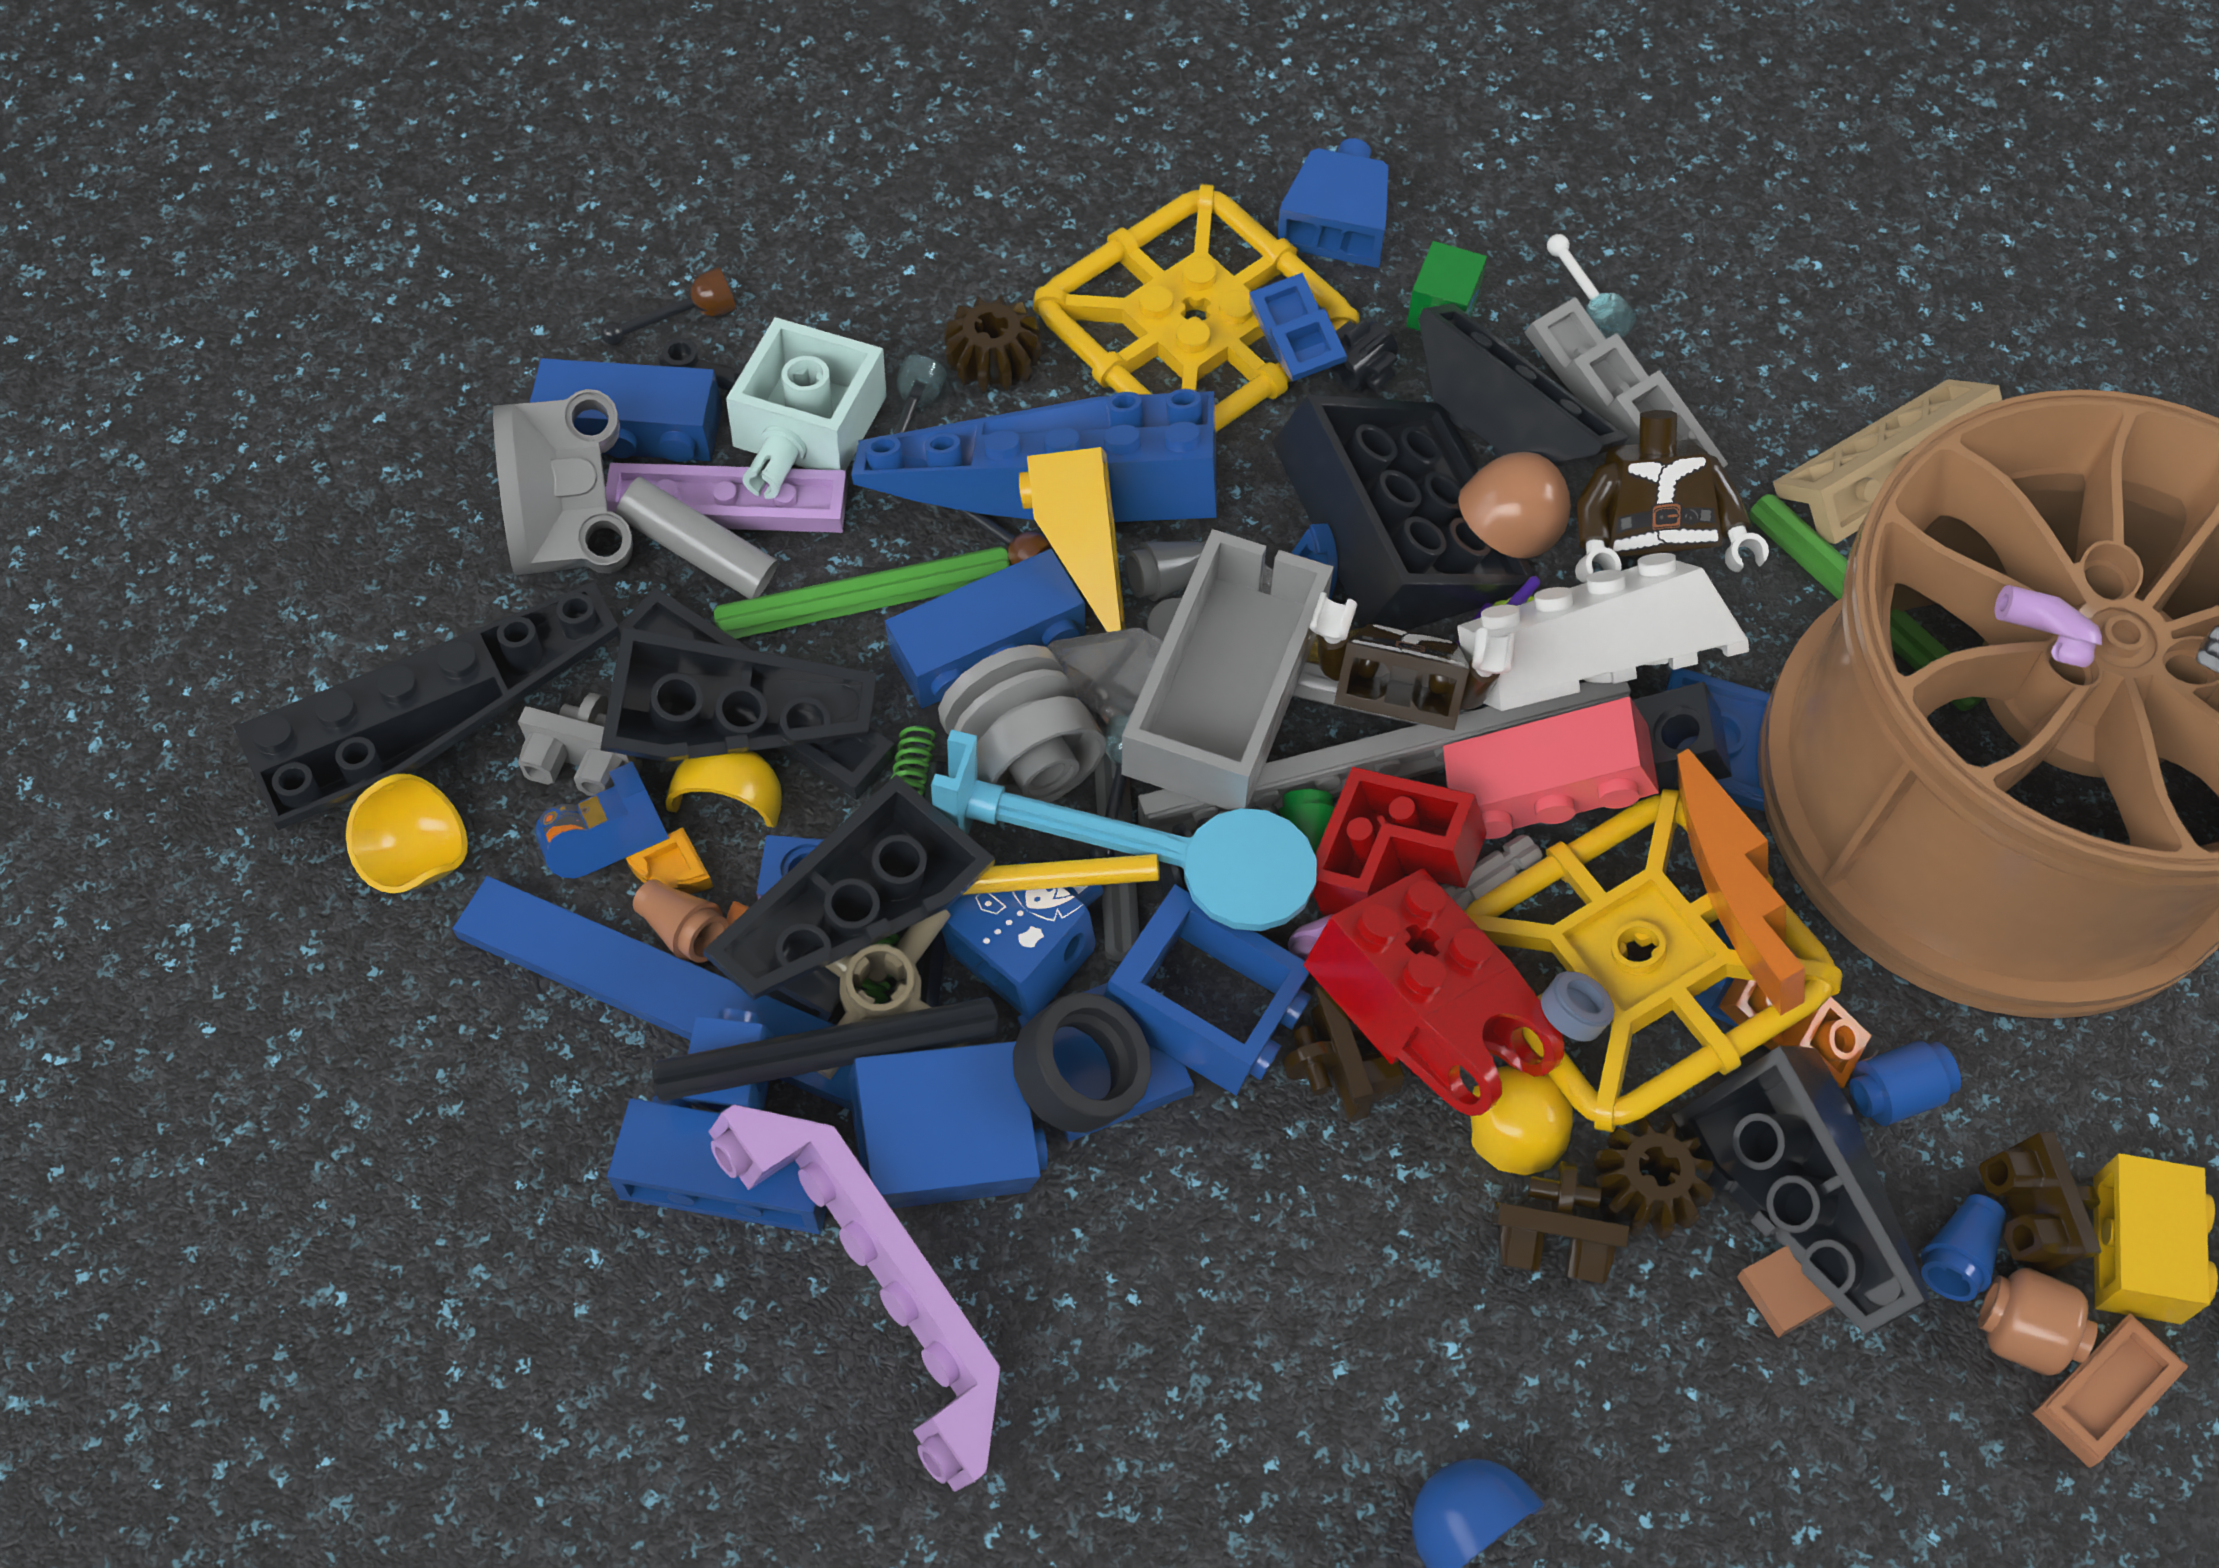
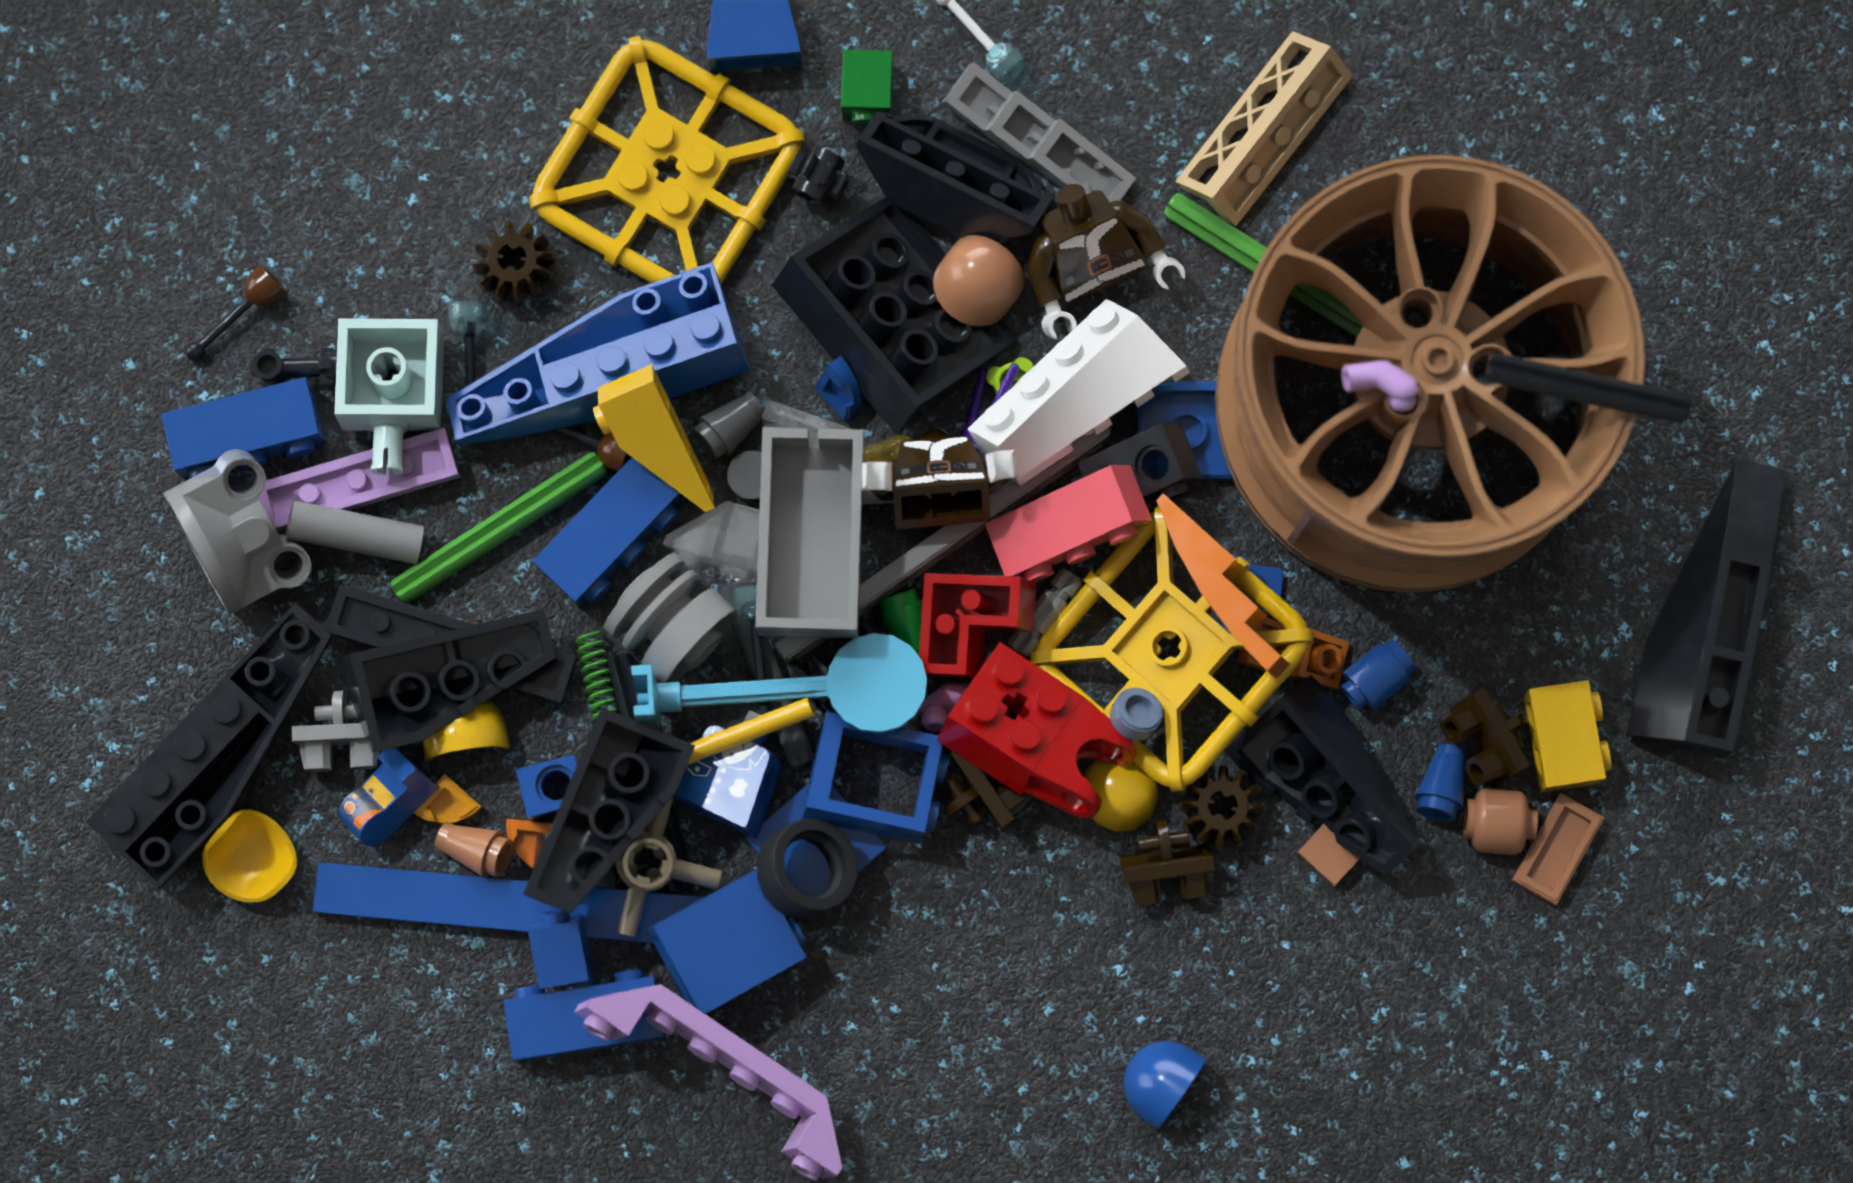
camera: 15 degrees left, 20 degrees up
(823, 1048) = (629, 924): black axle -> none
(1296, 327) = (759, 176): blue slope -> none

